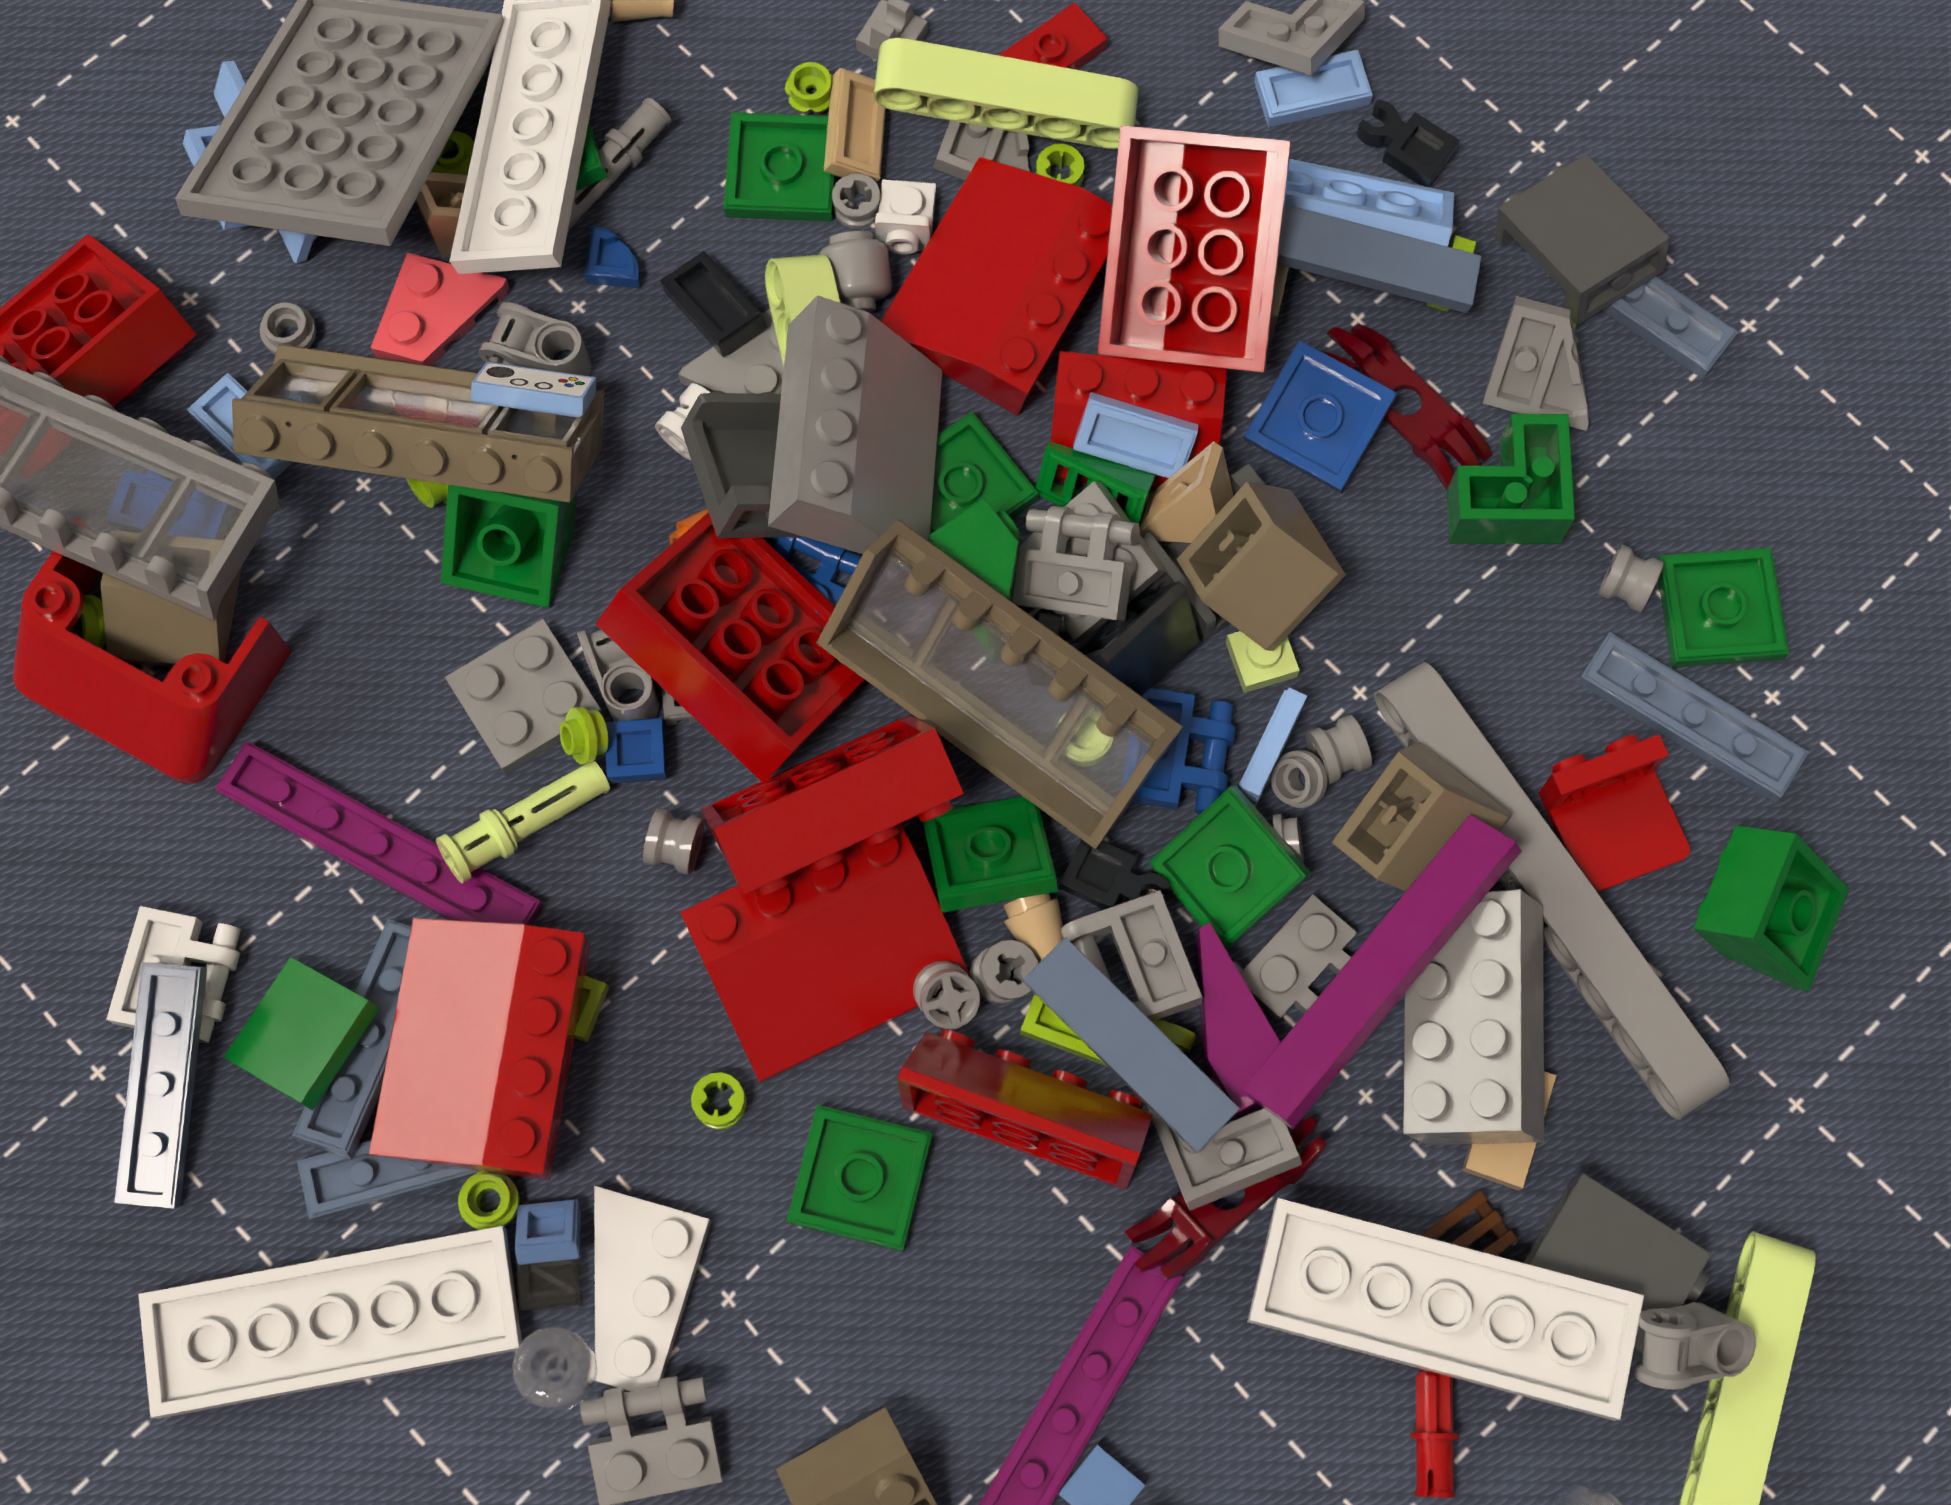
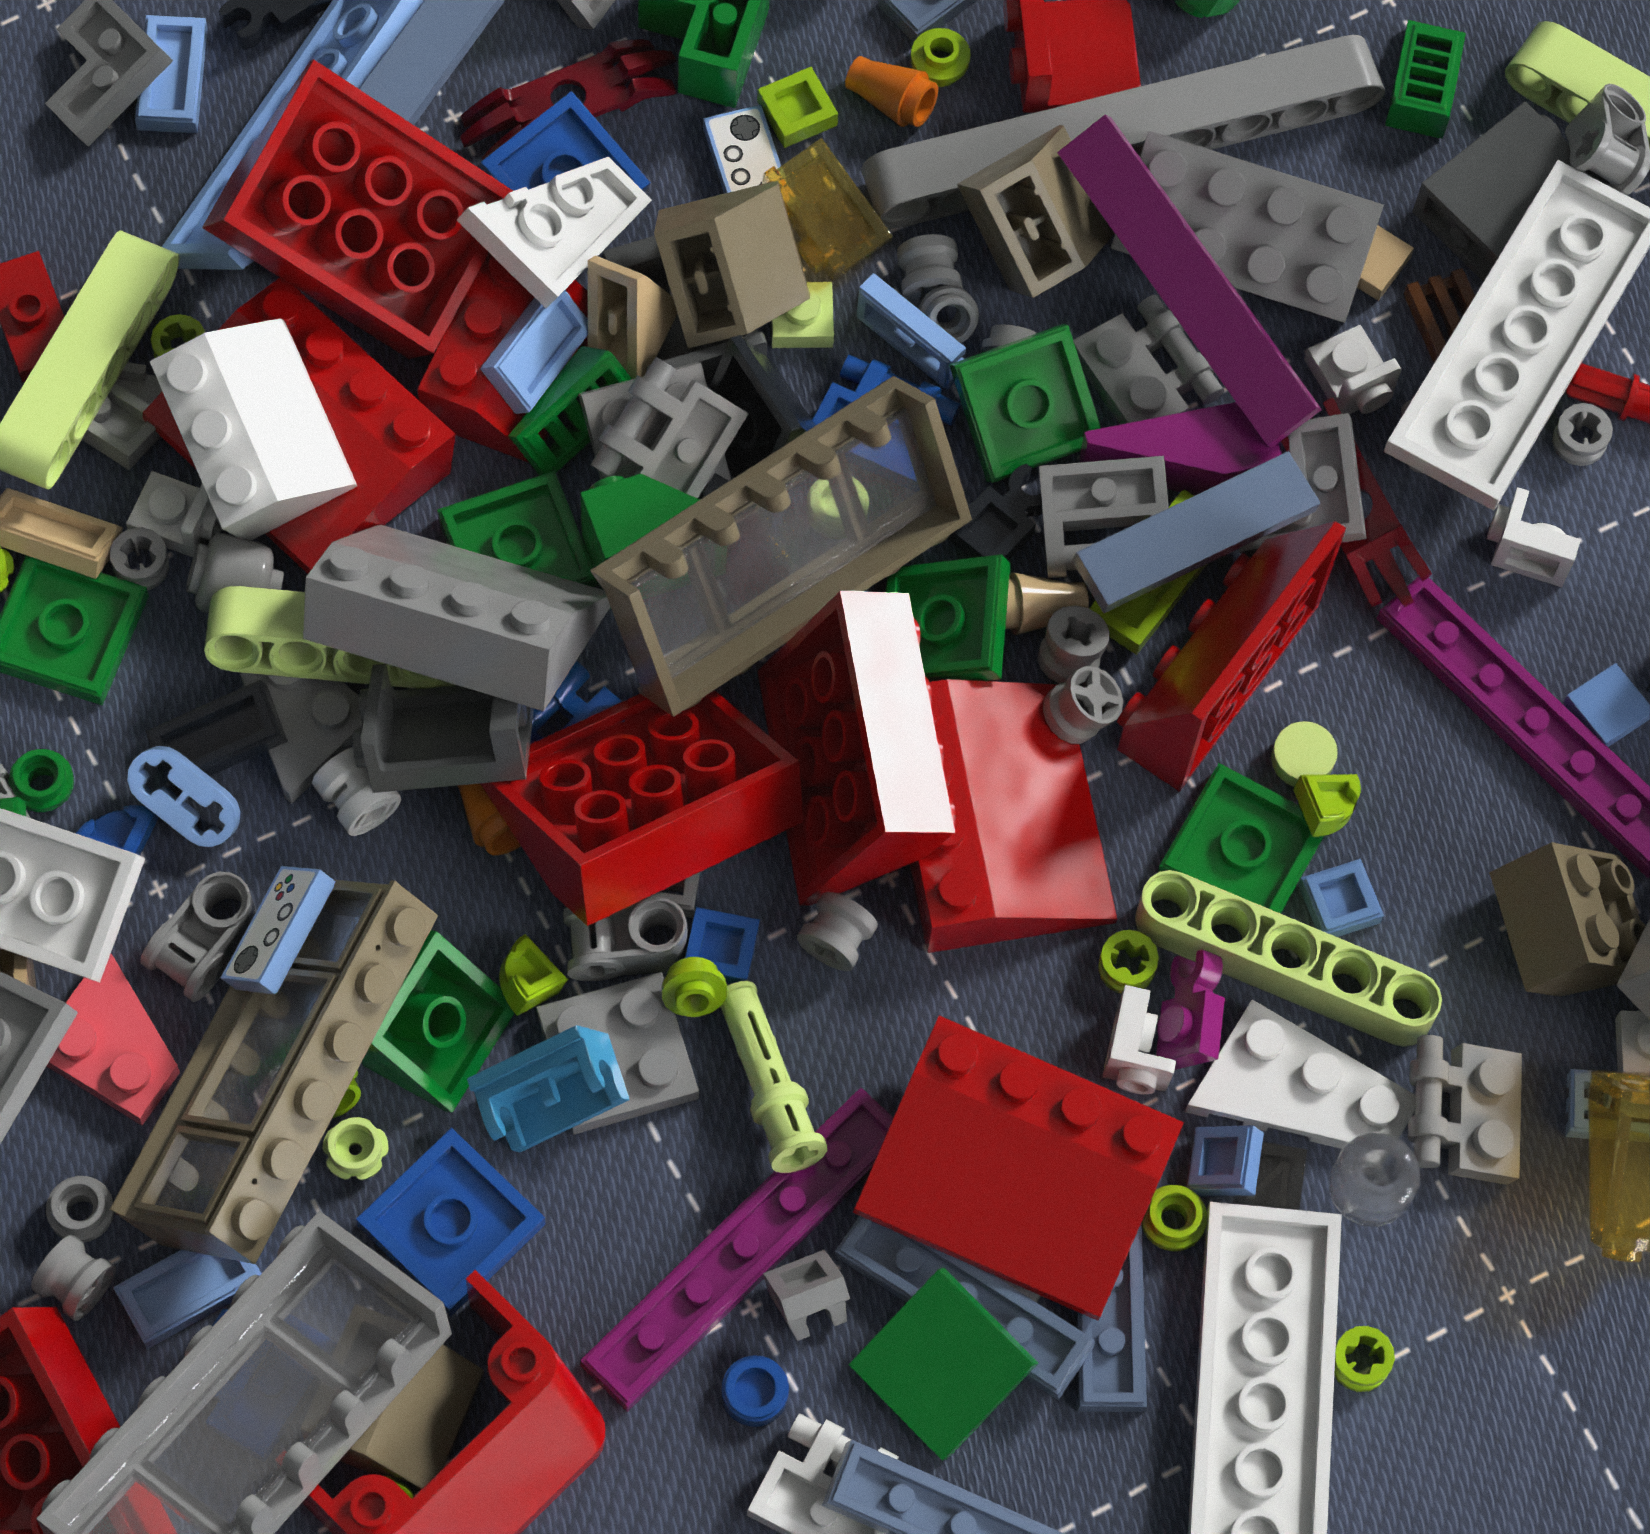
camera: 80 degrees left, 5 degrees down
(224, 339) = (73, 1277): none -> light grey wheel
(255, 888) = (754, 1391): none -> blue tile
(340, 605) = (450, 1219): none -> blue plate
(342, 903) = (807, 1288): none -> light grey tile
(382, 503) = (352, 1132): none -> yellowish green plate
(388, 1418) = (1377, 1373): none -> lime bush
(462, 645) = (549, 1087): none -> dark azure hinge
(568, 604) = (528, 976): none -> lime tile
(637, 176) = (39, 763): none -> green plate
(645, 1117) = (1134, 1032): none -> white bracket
(650, 293) = (172, 807): none -> light blue beam
(673, 1166) = (1193, 1019): none -> magenta plate
(759, 1270) = (1319, 952): none -> yellowish green beam
(833, 1279) = (1341, 899): none -> medium blue tile
(920, 1241) = (1327, 801): none -> lime tile
(966, 1210) = (1303, 750): none -> yellowish green tile
(973, 229) = (253, 426): none -> white slope
(1237, 1379) = (1528, 548): none -> white bracket
(1247, 413) = (556, 227): none -> white wing
(1361, 639) = (827, 211): none -> clear yellow bracket
(1372, 1162) = (1353, 371): none -> white bracket
(1376, 1381) = (1582, 415): none -> light grey bush
(1394, 570) = (740, 147): none -> tile
(1465, 593) = (797, 107): none -> lime plate
(1513, 673) = (896, 91): none -> orange cone
(1559, 717) = (941, 70): none -> lime plate
(1672, 1164) = (1416, 113): none -> green slope

